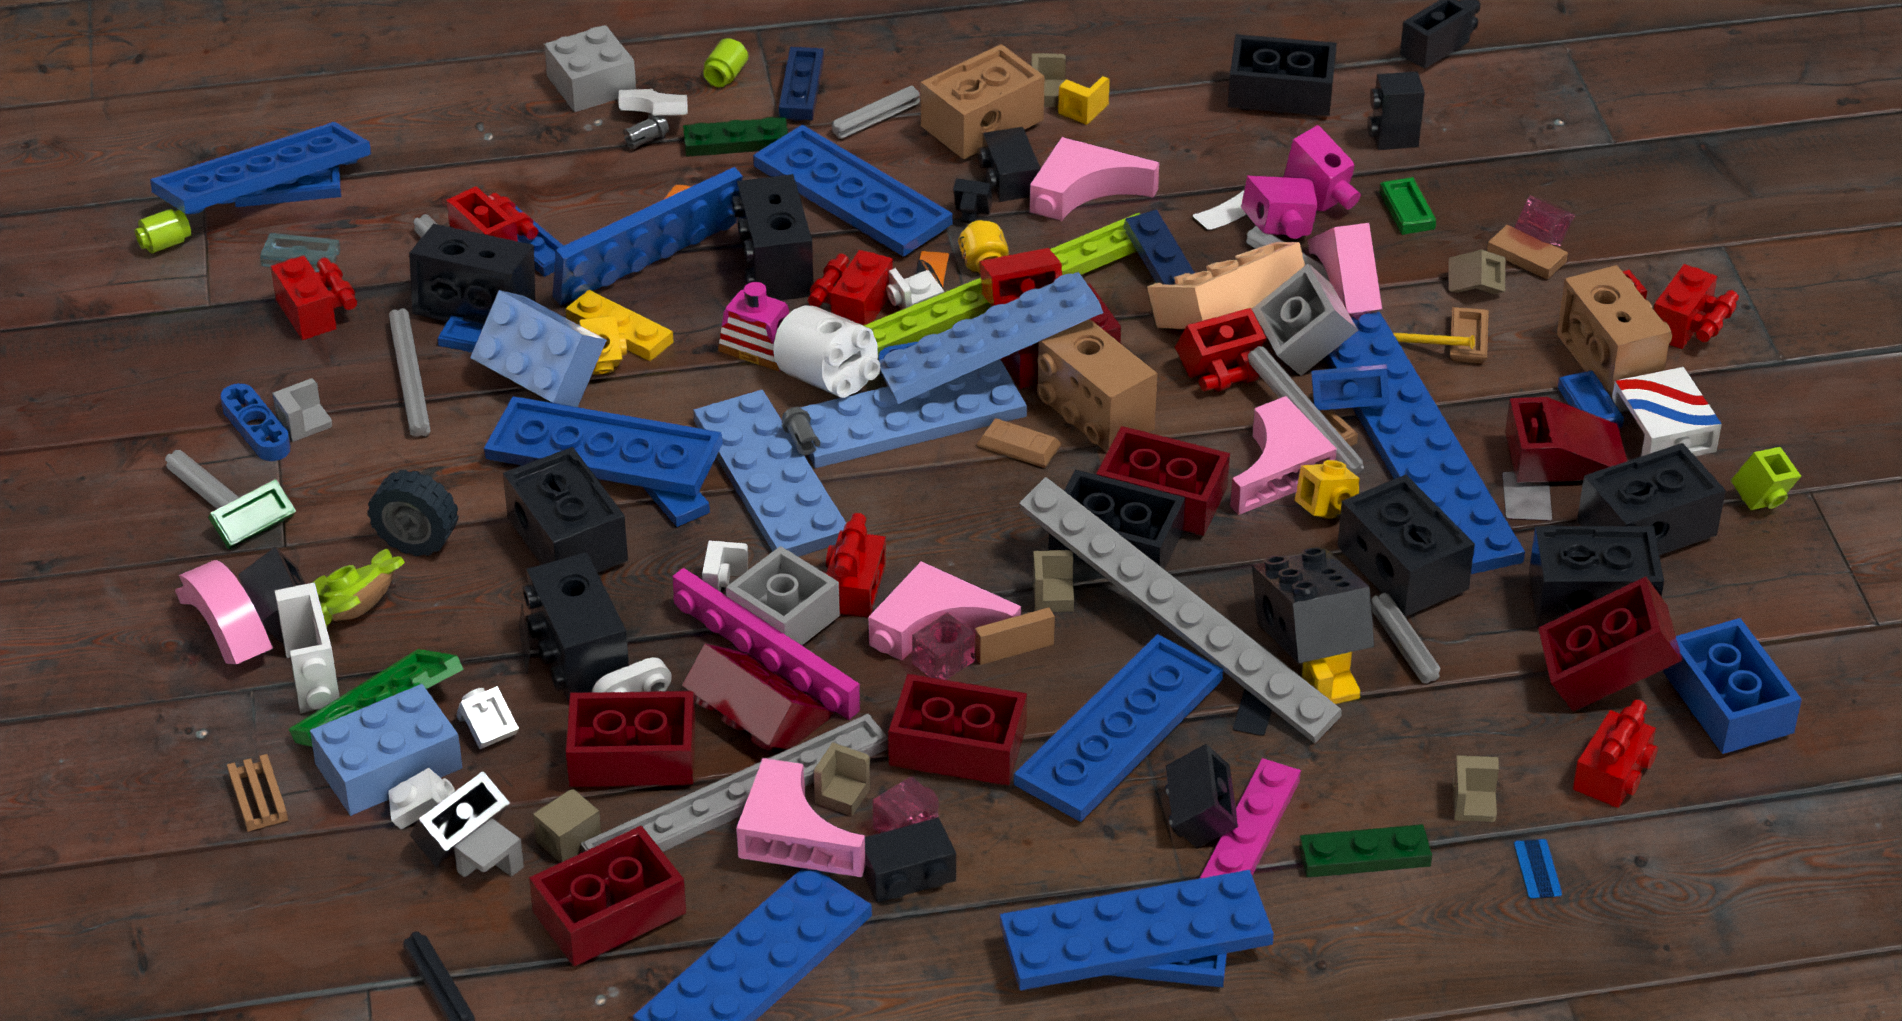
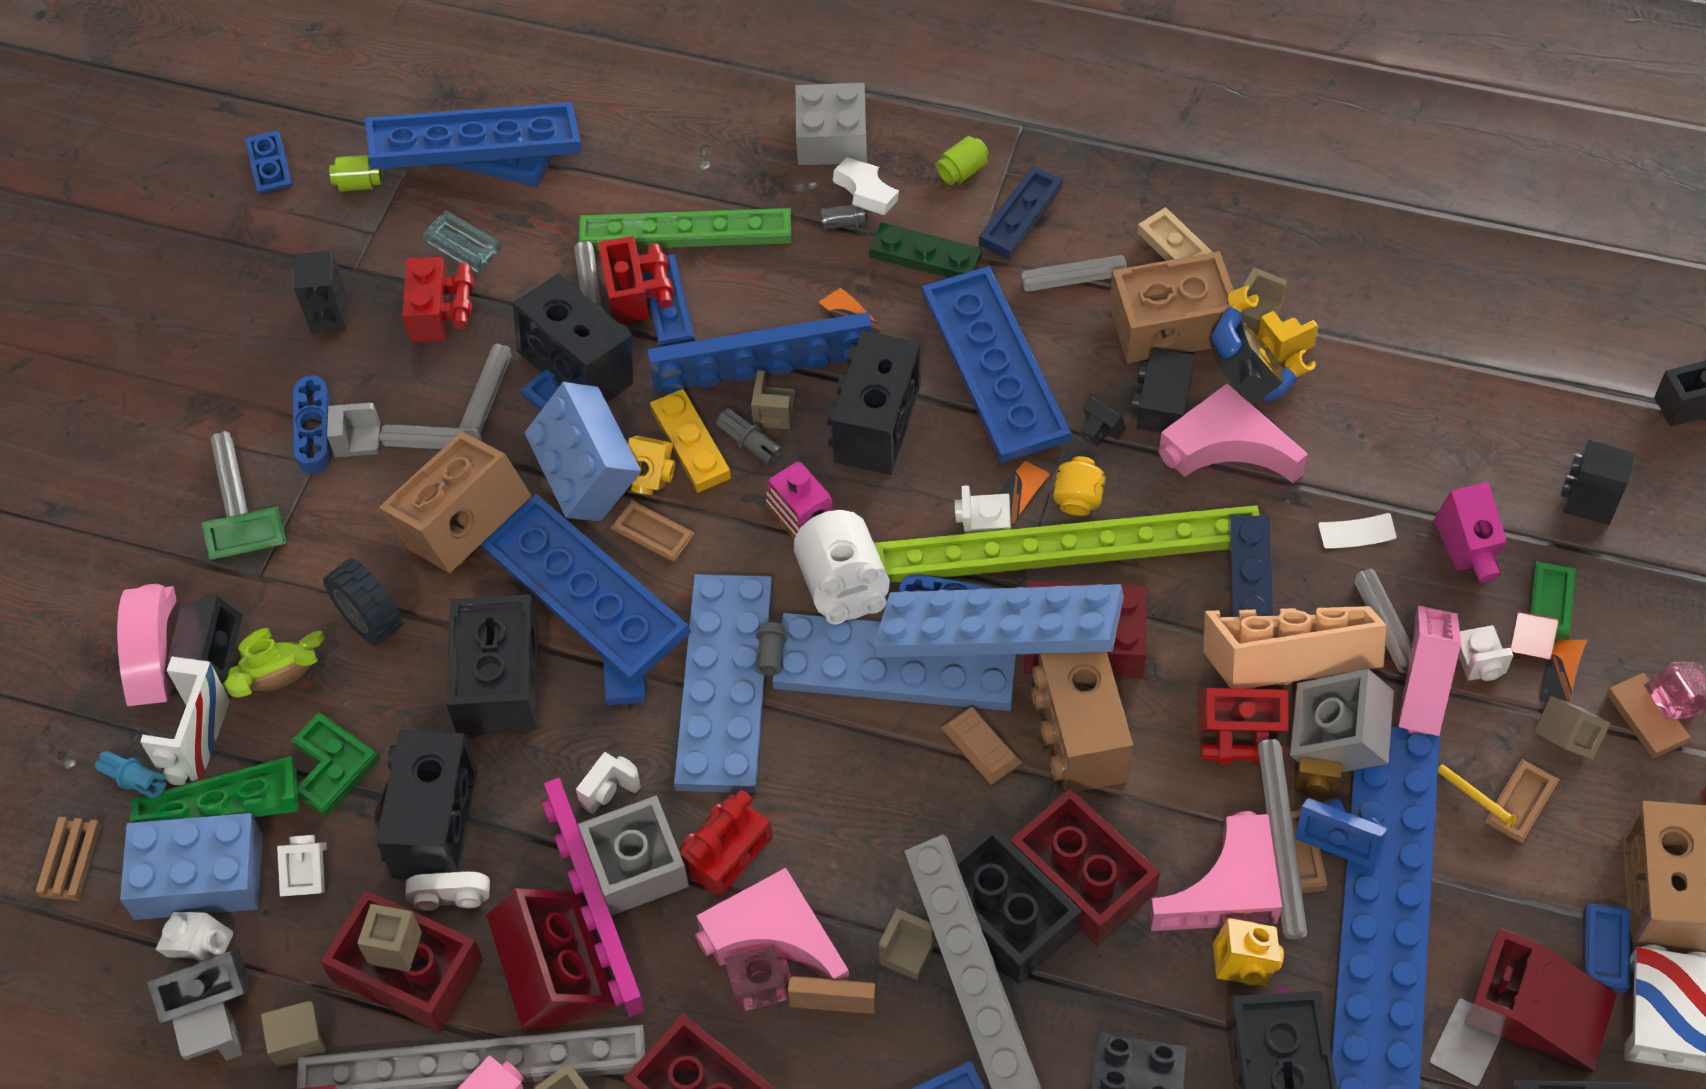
camera: 30 degrees right, 15 degrees up
(64, 251) = (268, 162): none -> blue slope
(202, 316) = (320, 291): none -> black brick
(274, 710) = (131, 774): none -> dark azure axle
(382, 390) = (422, 436): none -> light grey axle
(448, 416) = (455, 501): none -> medium nougat piece
(457, 636) = (340, 760): none -> green tile
(514, 179) = (690, 228): none -> bright green tile
(625, 703) = (389, 937): none -> dark tan panel
(632, 396) = (653, 531): none -> medium nougat tile
(673, 304) = (749, 436): none -> dark grey axle
(677, 278) = (772, 405): none -> dark tan panel
(859, 287) = (926, 495): red brick -> none
(935, 59) = (1170, 236): none -> tan plate
(1012, 275) = (1079, 552): red brick -> none
(1069, 110) = (1246, 358): none -> torso
(1280, 205) = (1407, 557): dark pink torso -> none
(1282, 75) = (1503, 385): black brick -> none
(1302, 363) = (1318, 777): none -> pearl gold plate
(1387, 253) = (1483, 654): none -> white bracket
(1409, 227) = (1533, 635): none -> tile
(1444, 243) = (1562, 670): none -> sticker

